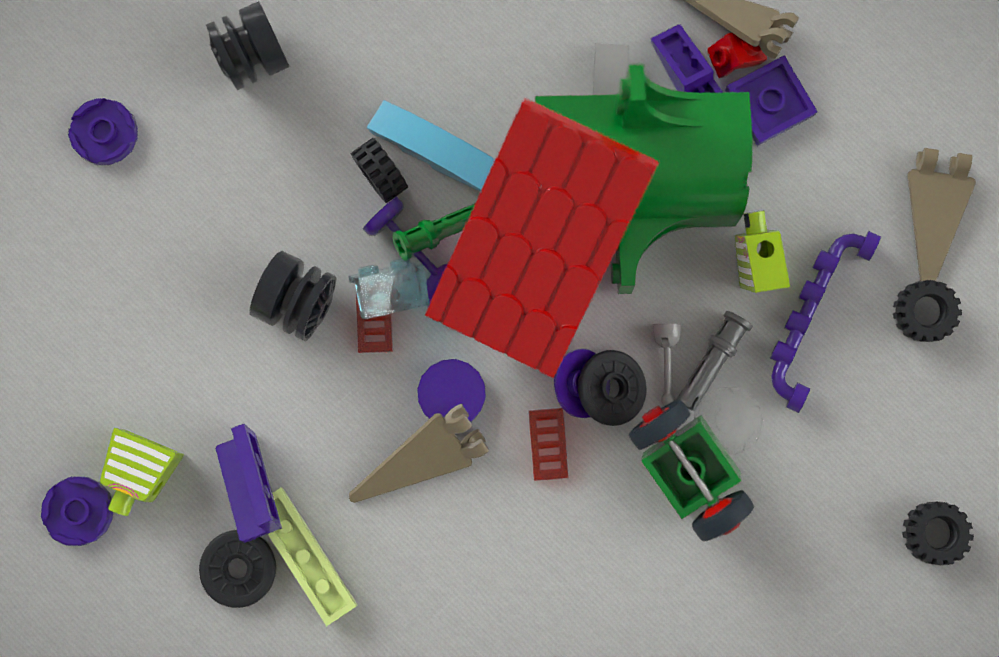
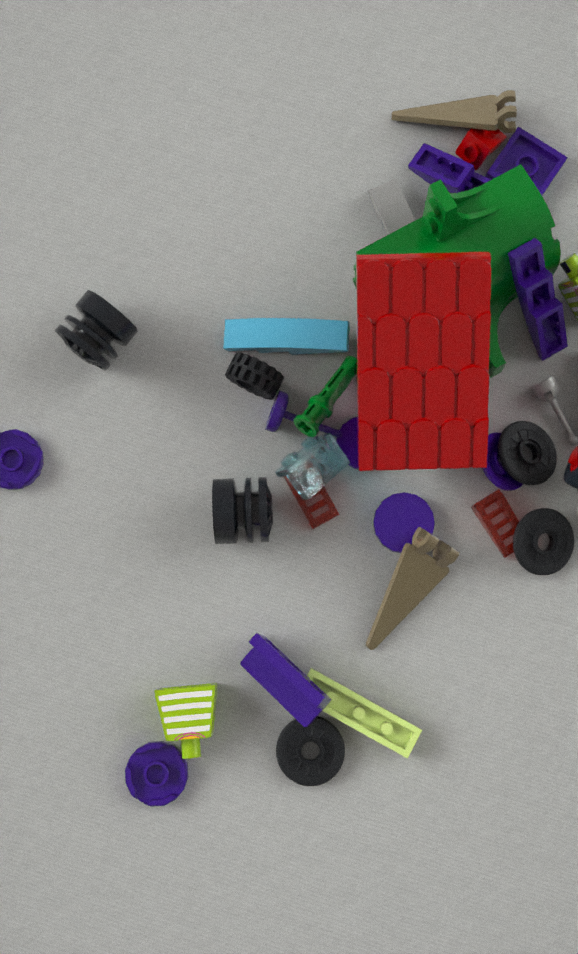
camera: 25 degrees left, 0 degrees up
(568, 467) = (526, 541): none -> black wheel
(701, 238) = (537, 299): none -> dark purple slope

